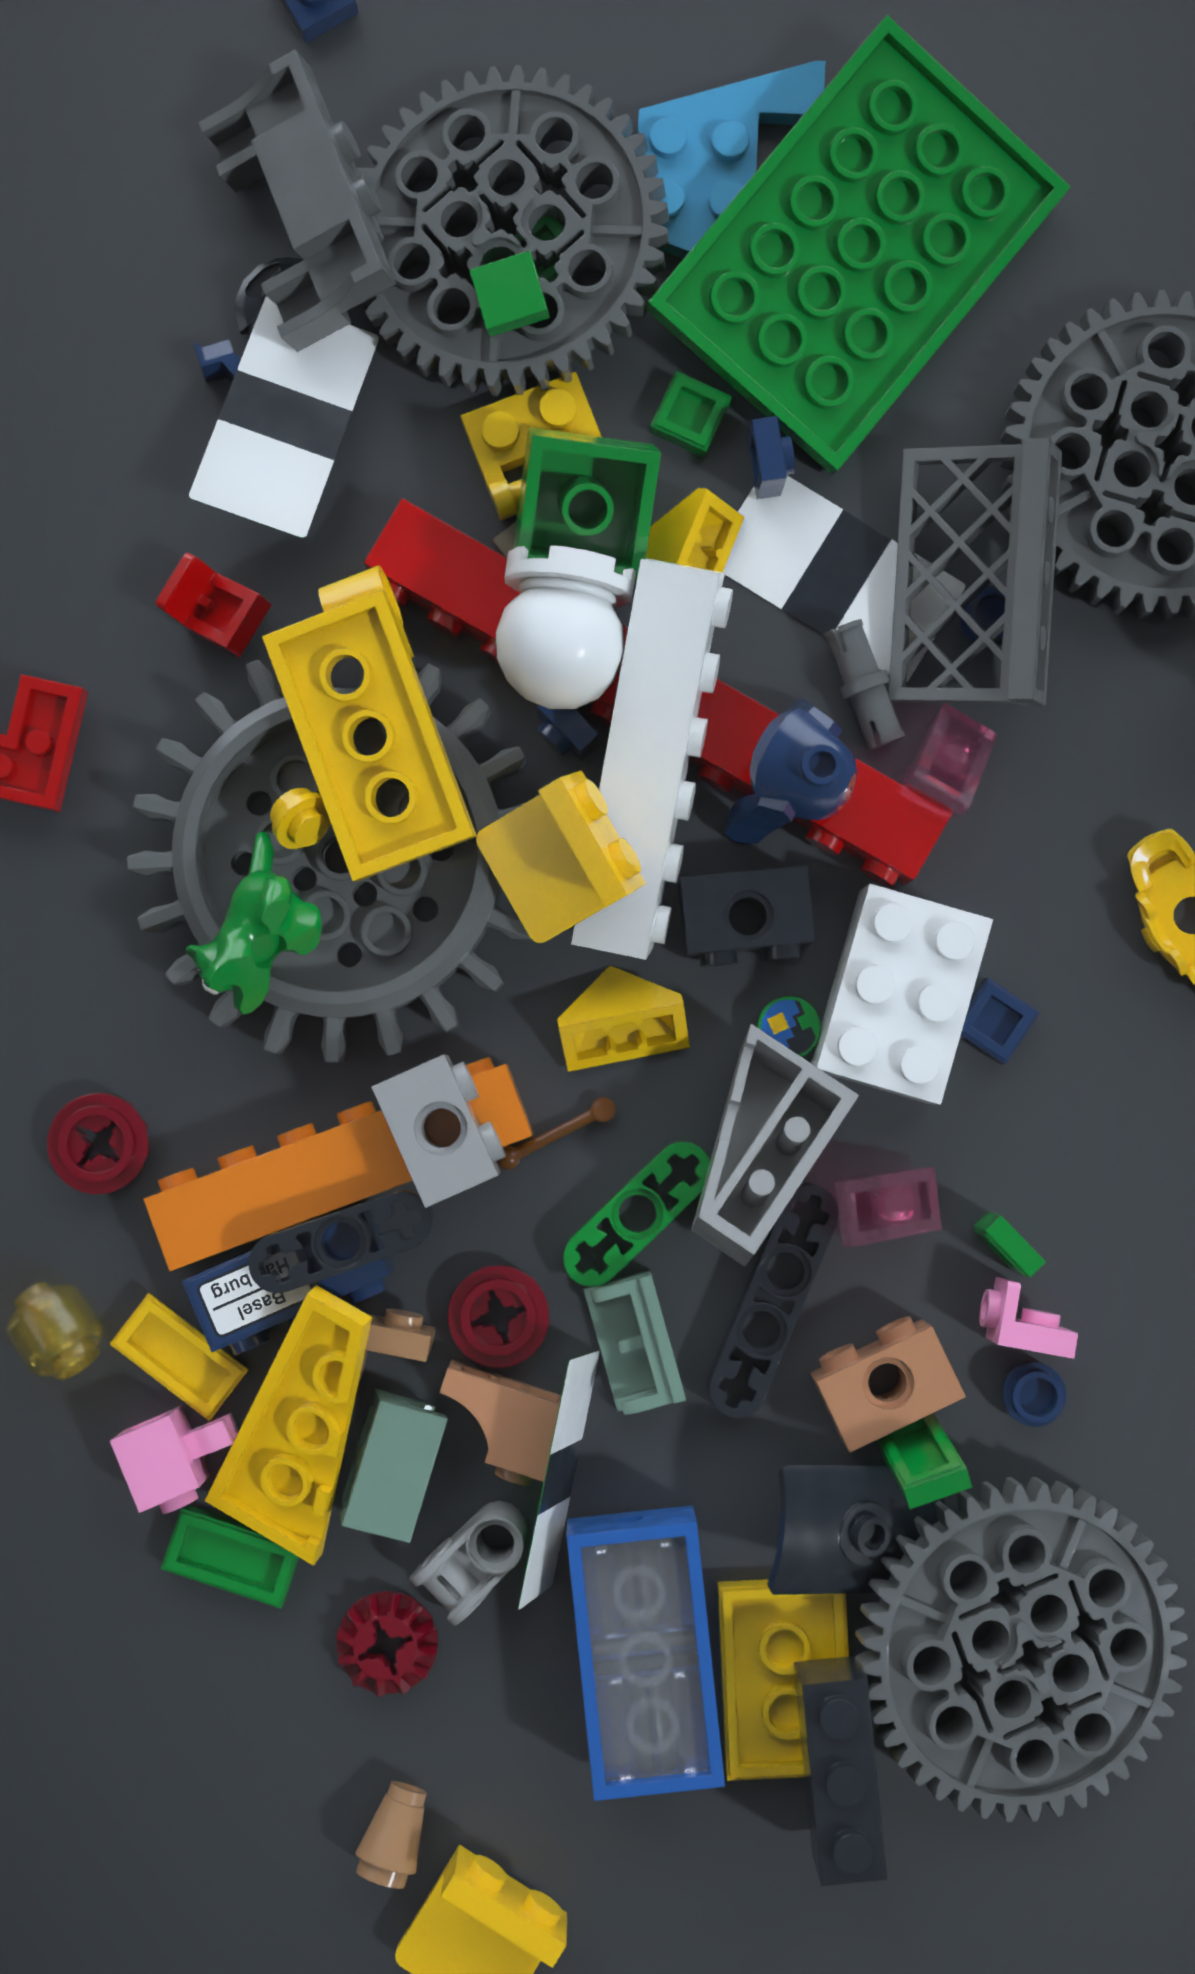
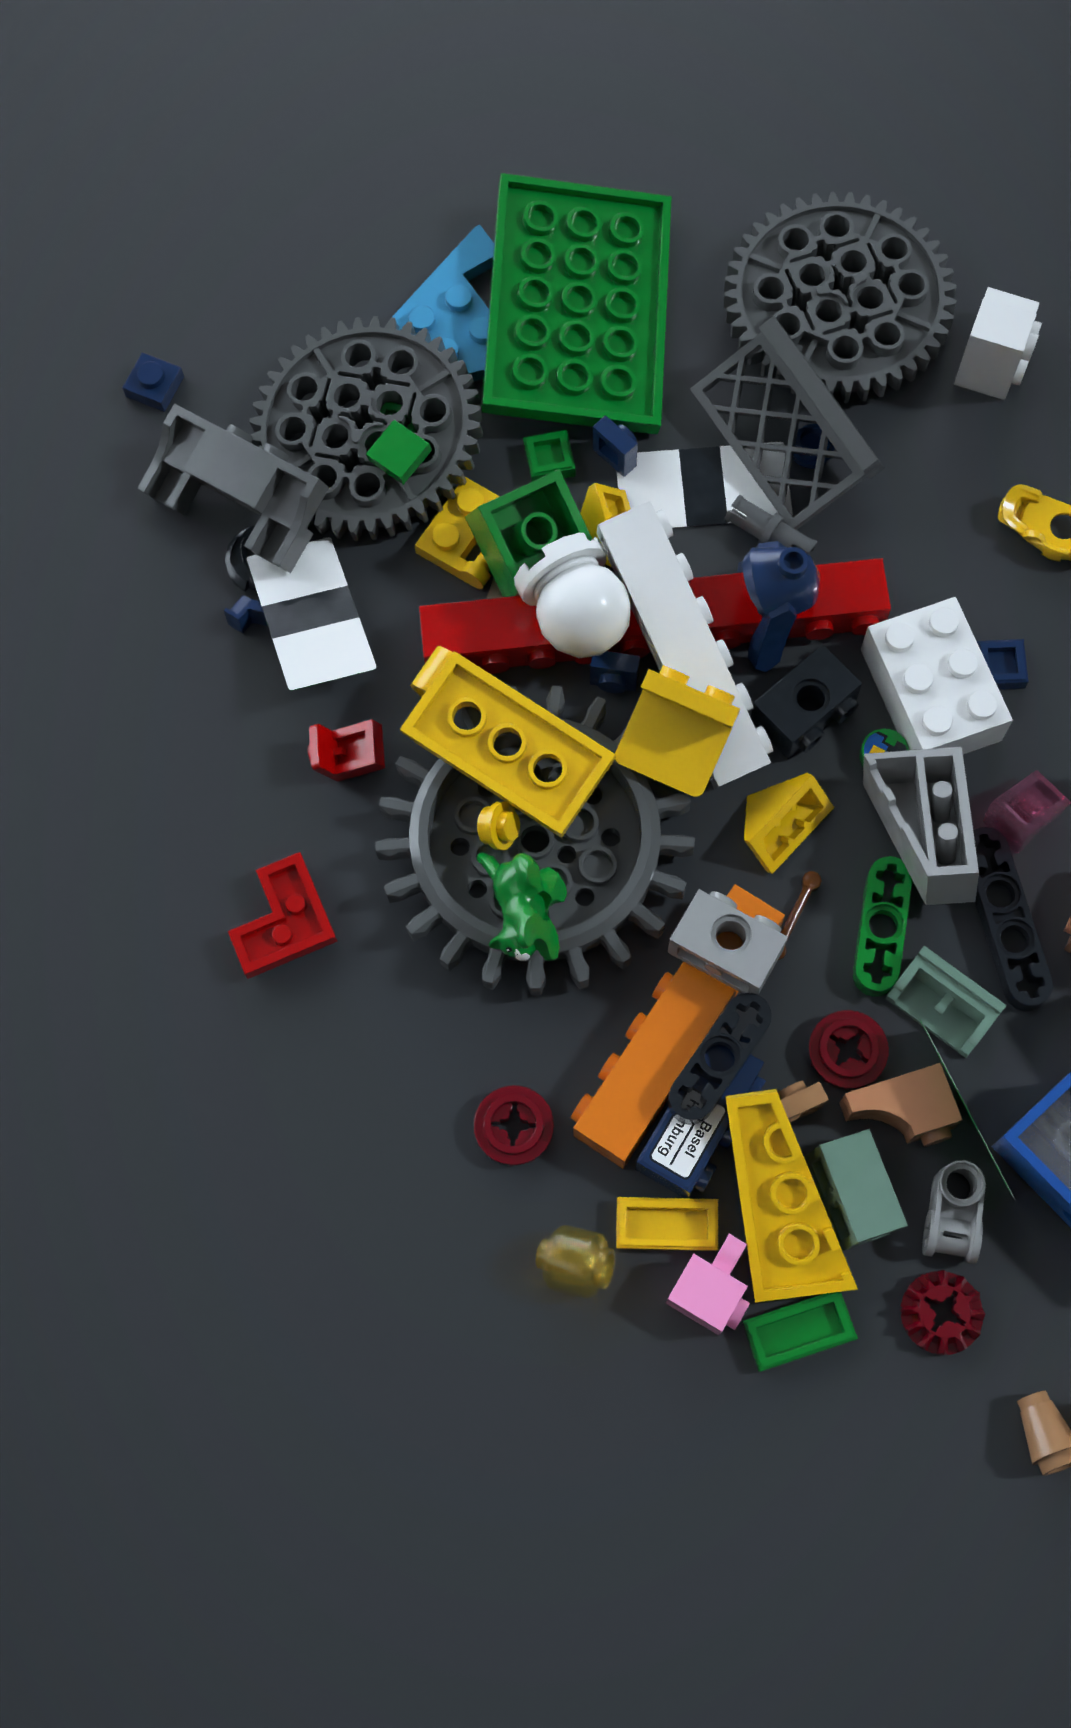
camera: 25 degrees left, 15 degrees down
(950, 760) = (856, 534): clear pink slope -> none

